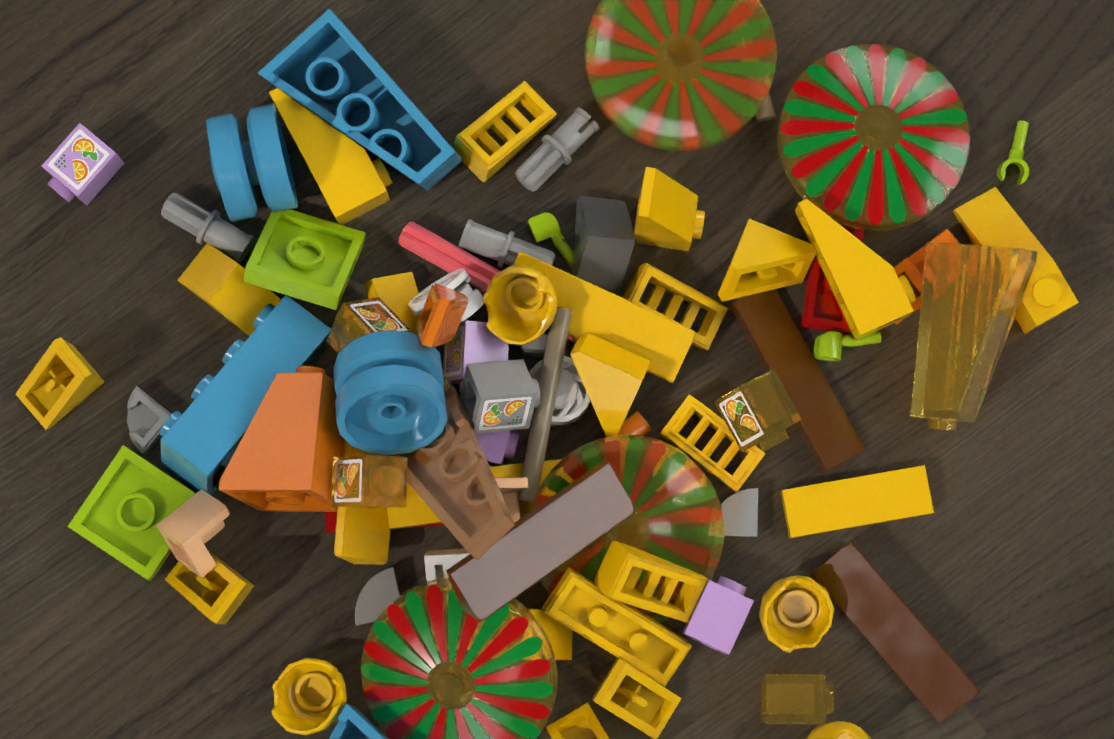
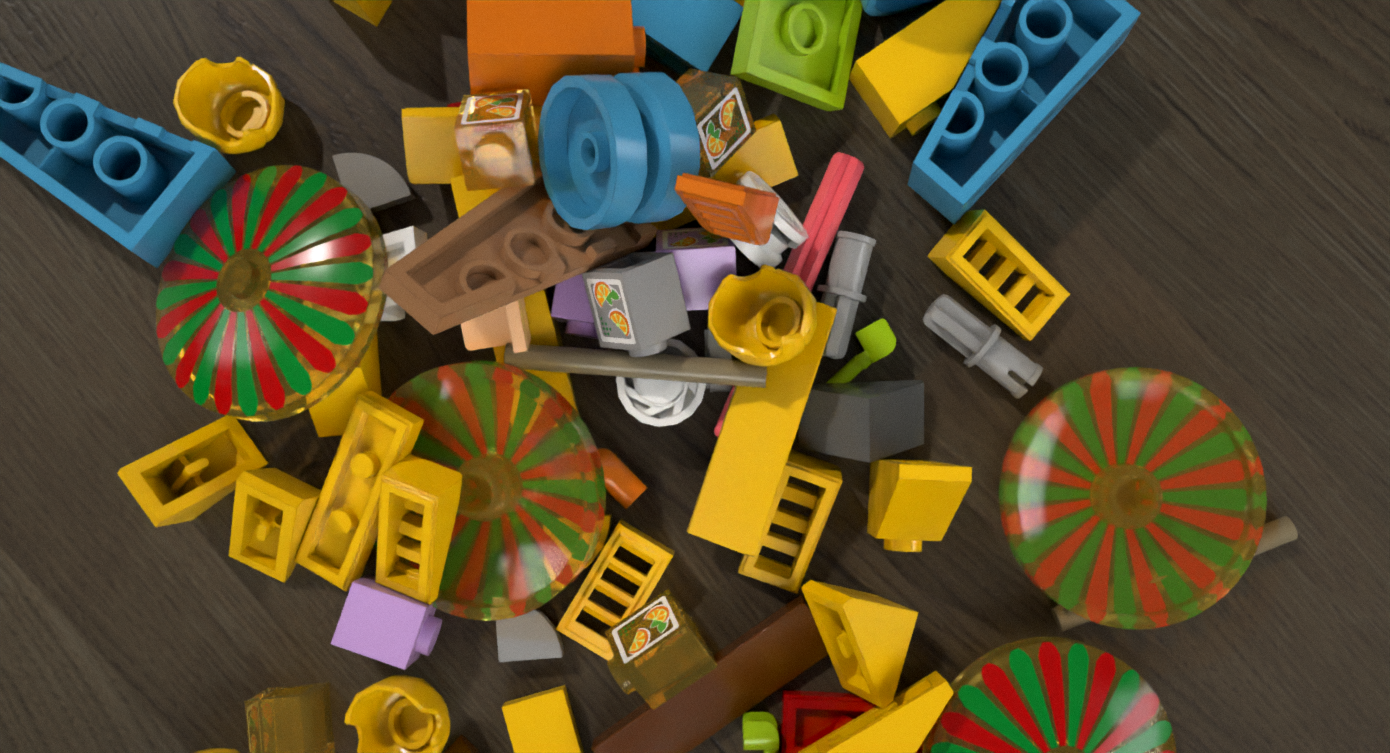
camera: 90 degrees right, 5 degrees up
(541, 542) = (438, 381): slope -> none
(609, 377) = (680, 447): yellow slope -> none

